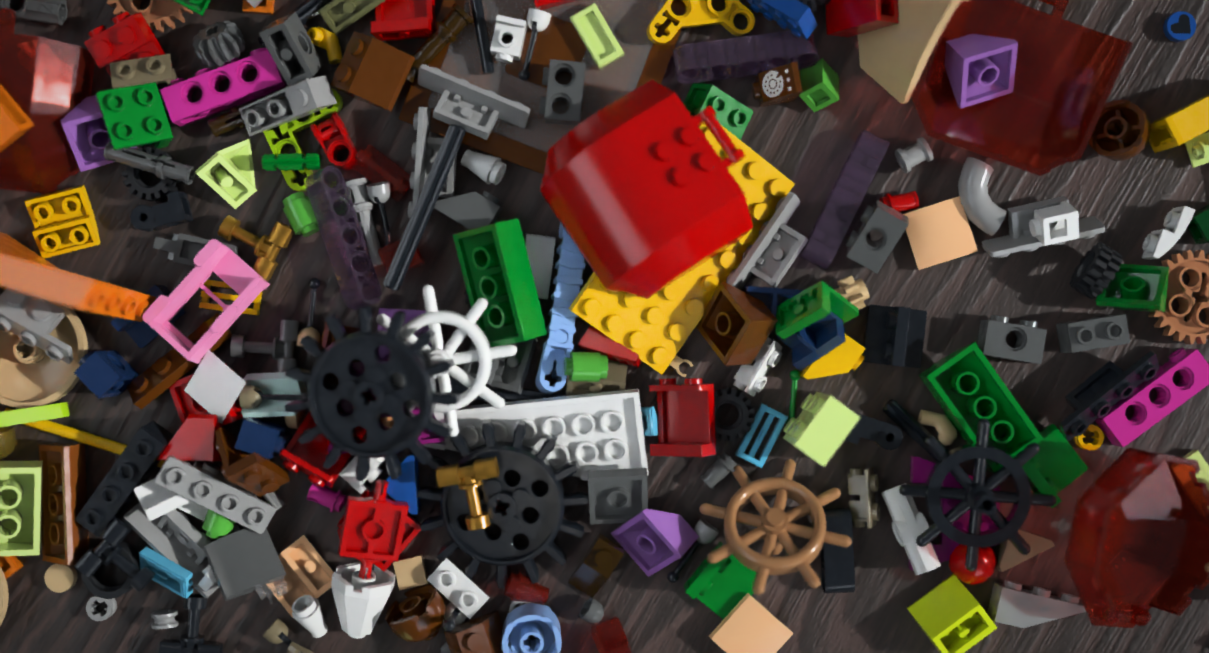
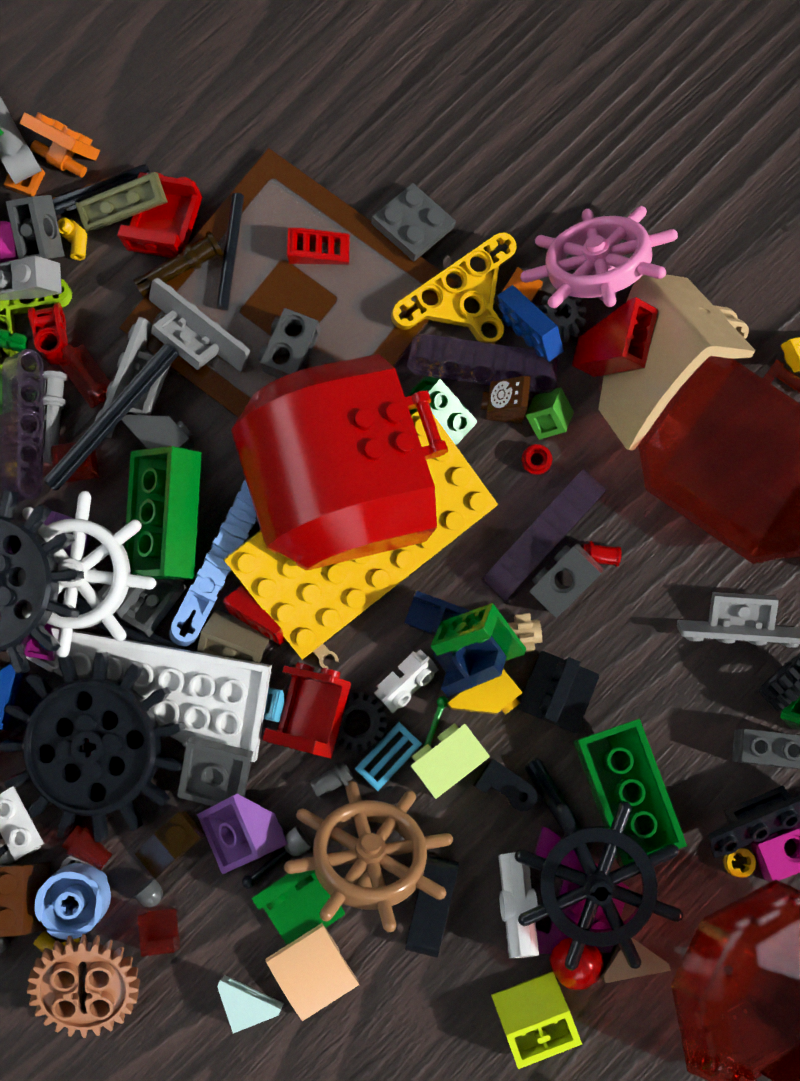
camera: 15 degrees right, 10 degrees down
(372, 71) = (106, 272): reddish brown slope -> none
(379, 194) = (74, 394): hinge -> none
(469, 479) = (60, 704): pearl gold bar -> none
(486, 167) = (189, 398): white cone -> none
(508, 26) = (253, 290): white brick -> none
(537, 22) = (286, 272): hinge -> none
(540, 255) = (213, 505): white slope -> none
(586, 366) = (223, 625): bright green brick -> none
(596, 36) = (340, 303): yellowish green tile -> none
(735, 325) = (393, 629): reddish brown slope -> none
(774, 248) = (454, 564): light grey bracket -> none
(821, 123) = (536, 450): none -> red plate
(865, 485) = (477, 869): dark tan hinge -> none
(913, 154) = (629, 510): light grey bush -> none
(940, 233) = (634, 597): light nougat slope -> none
(941, 422) = (584, 801): tan arm -> none
(975, 196) = (681, 571): light grey cylinder -> none
(980, 67) = (719, 440): medium lavender slope -> none
(1026, 608) = (625, 1034): light grey slope -> none
(1028, 344) = (700, 737): dark grey brick -> none
(1054, 464) = (691, 879): green bracket -> none
(1055, 224) = (764, 626): white brick -> none

